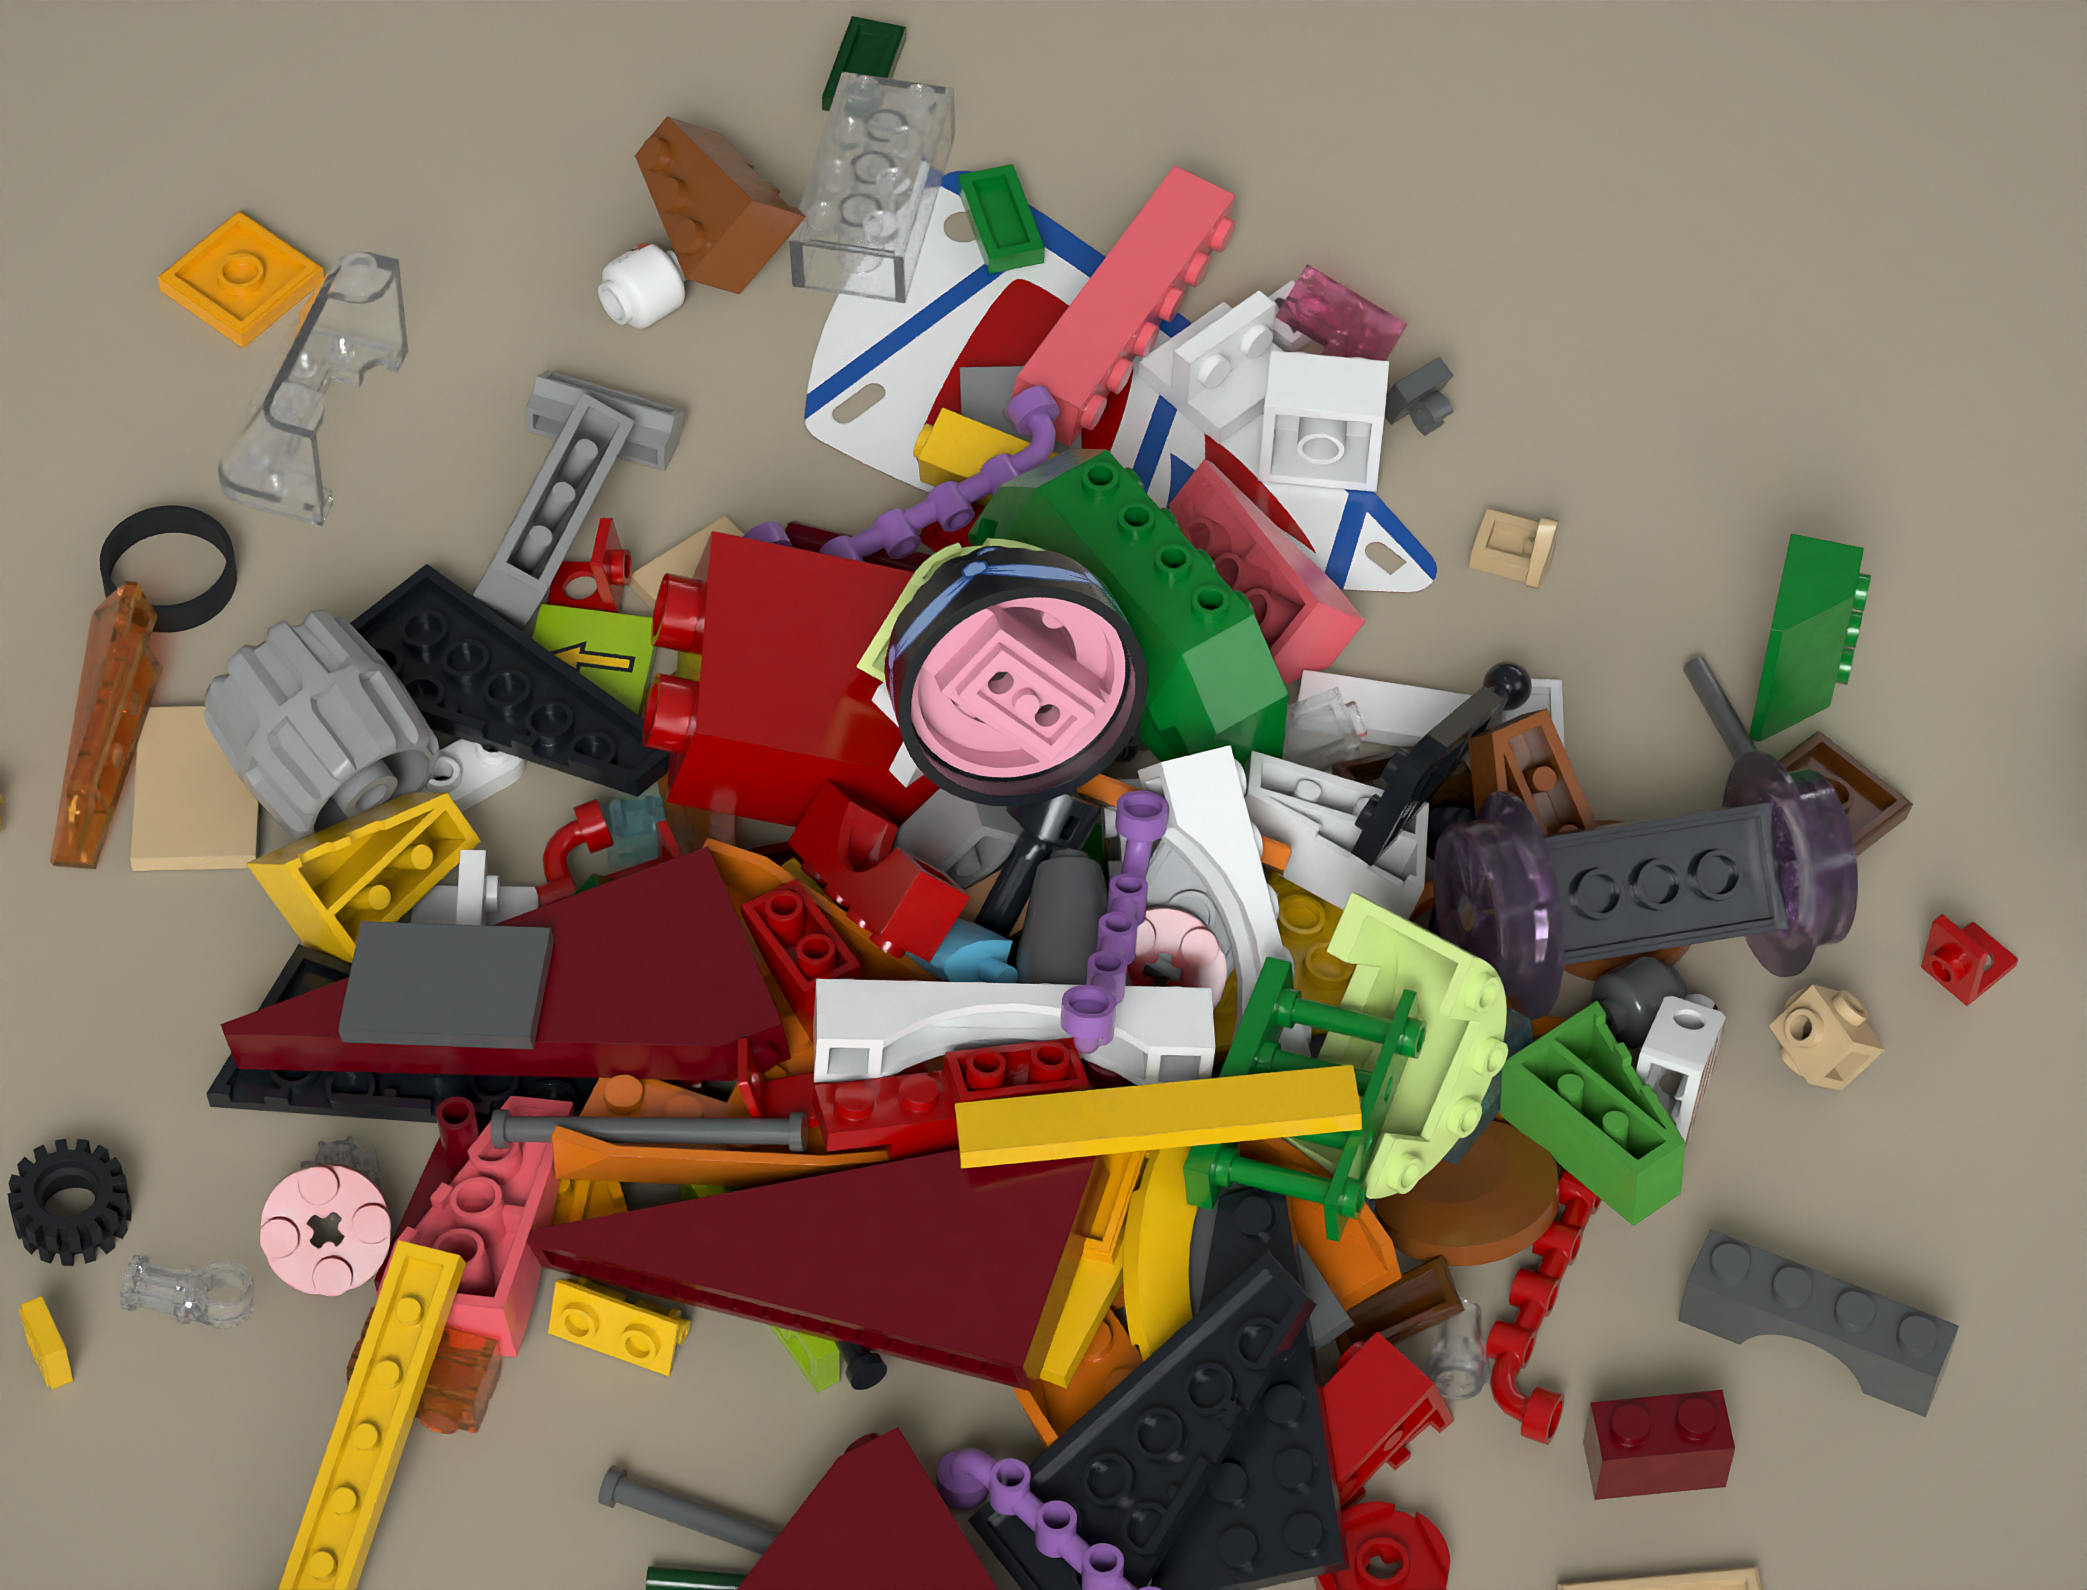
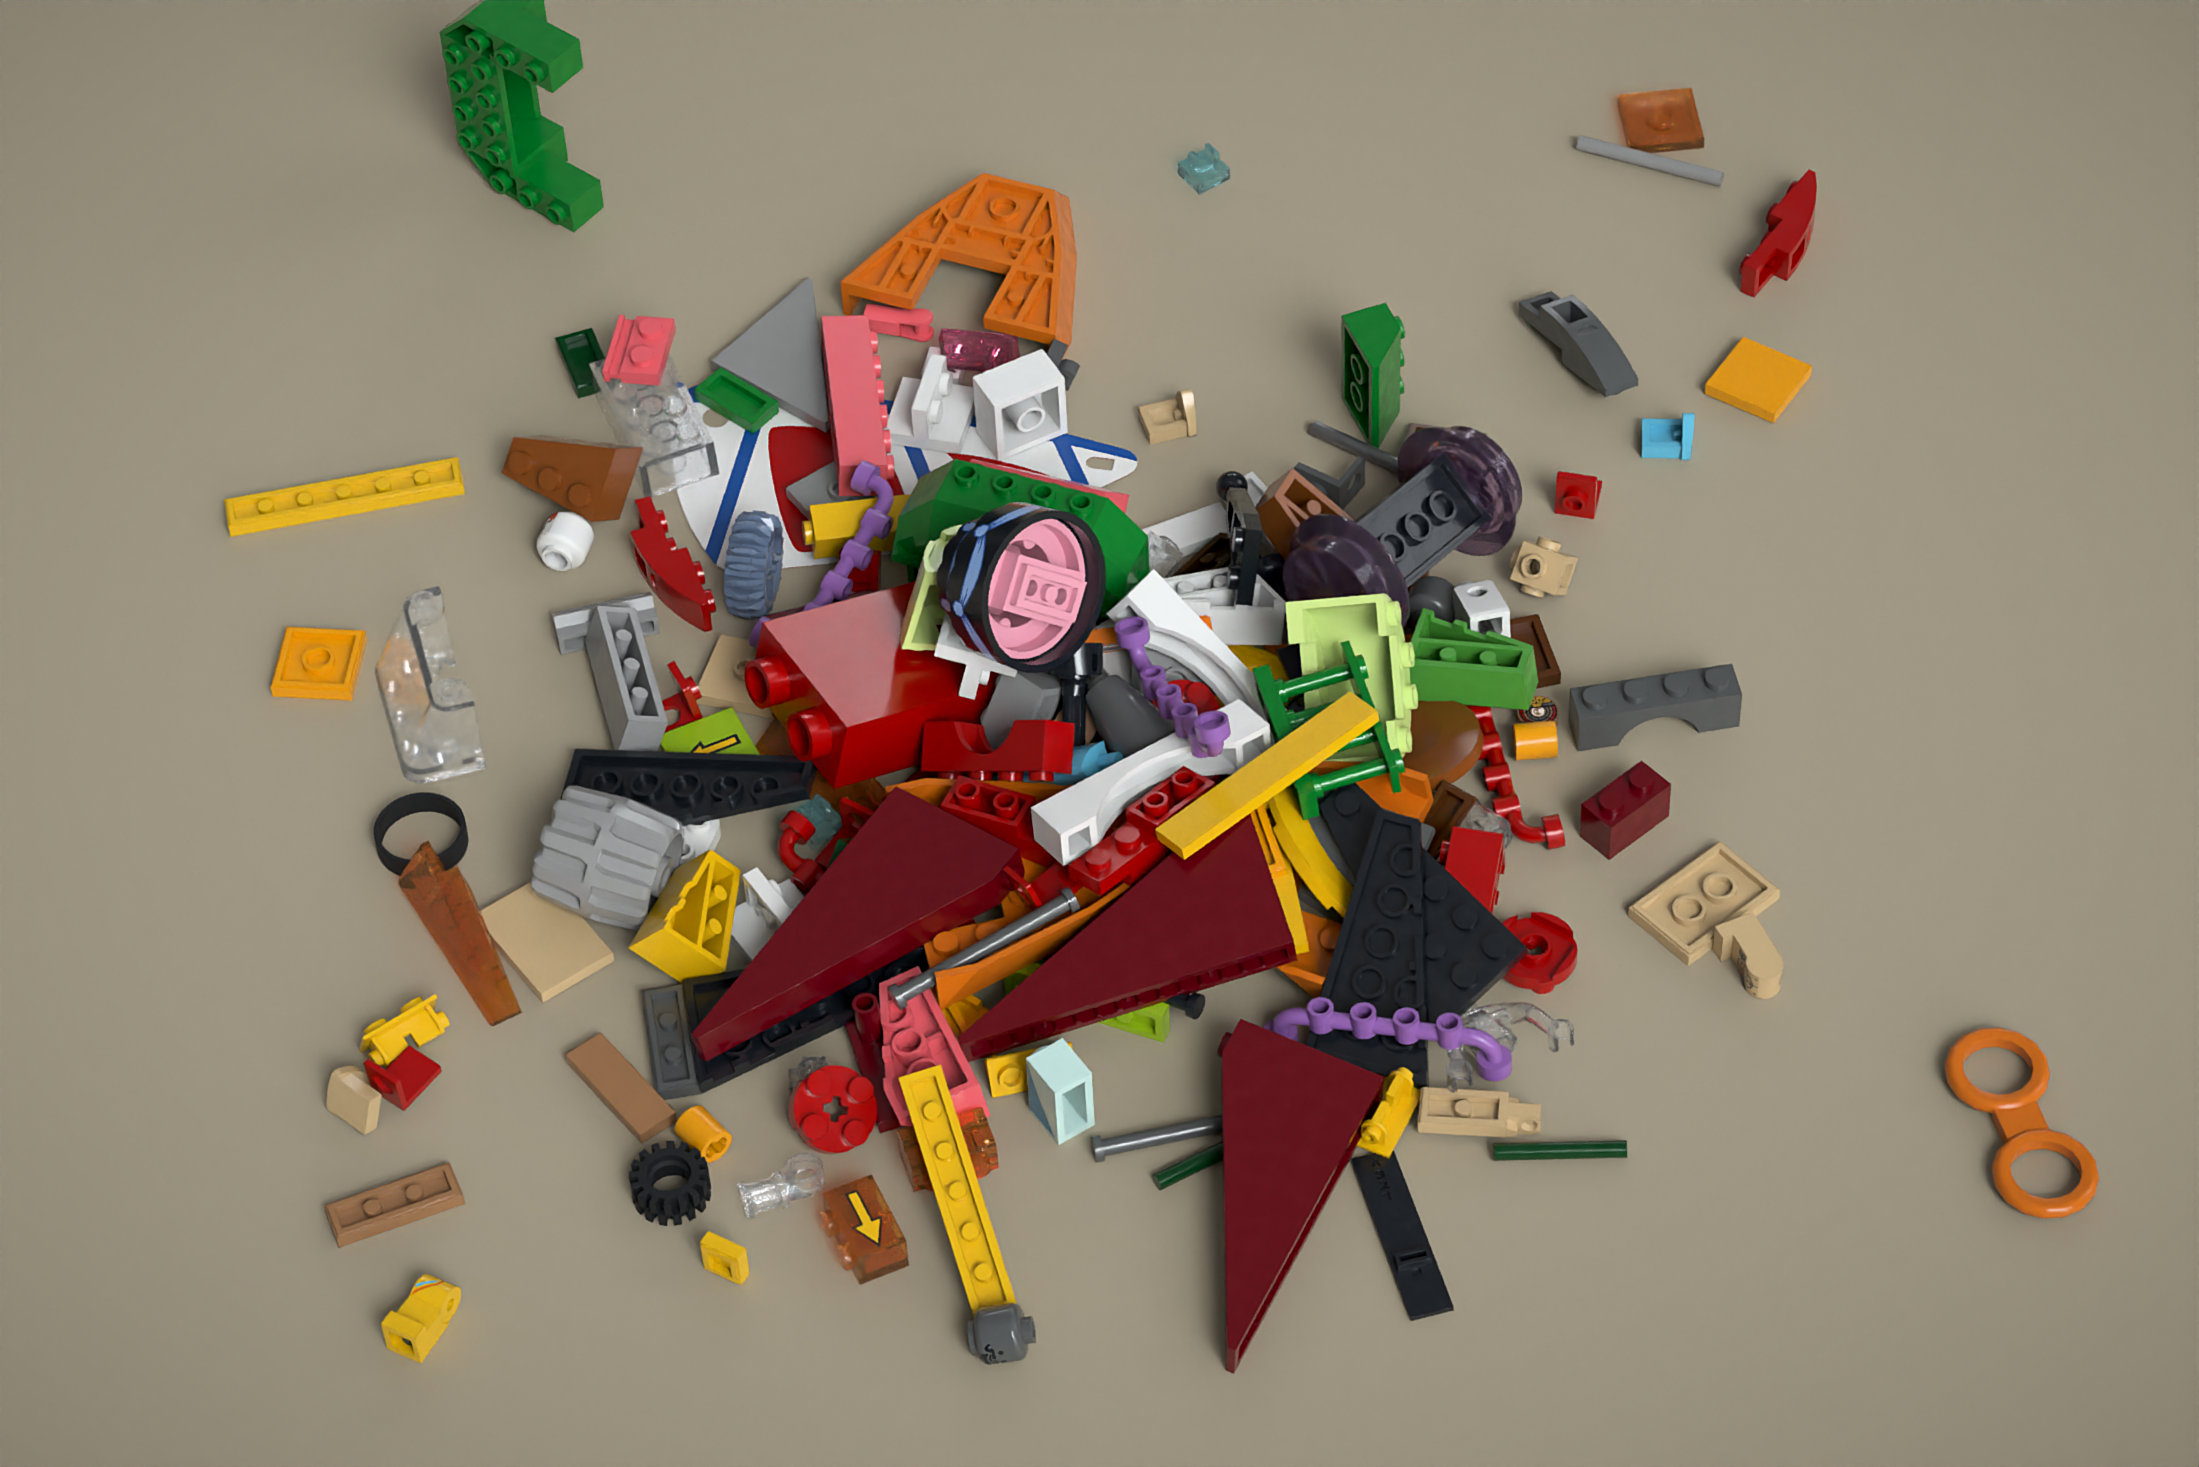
camera: 30 degrees left, 5 degrees down
(123, 1040) = (621, 1088): none -> medium nougat tile
(159, 1162) = (703, 1132): none -> light orange piece
(235, 992) = (671, 1042): none -> dark grey tile
(236, 1413) = (864, 1230): none -> clear orange brick
(446, 83) = (344, 496): none -> yellow tile
(446, 985) = (810, 937): dark grey tile -> none
(607, 1380) = (1060, 1091): none -> light aqua brick
(734, 388) = (670, 570): none -> red slope
(823, 446) = (753, 564): none -> sand blue gear
(905, 86) = (639, 350): none -> coral plate
(1097, 182) = (784, 357): none -> light grey tile
(1280, 224) = (900, 322): none -> coral bar
(1496, 165) = (991, 227): none -> orange piece
(1622, 1272) = (1534, 740): none -> light orange piece
(1637, 771) = (1336, 489): none -> dark grey bracket
(1661, 1240) = (1540, 710): none -> tile
(1724, 1142) = (1531, 631): none -> reddish brown tile
(1838, 233) = (1203, 169): none -> clear light blue tile

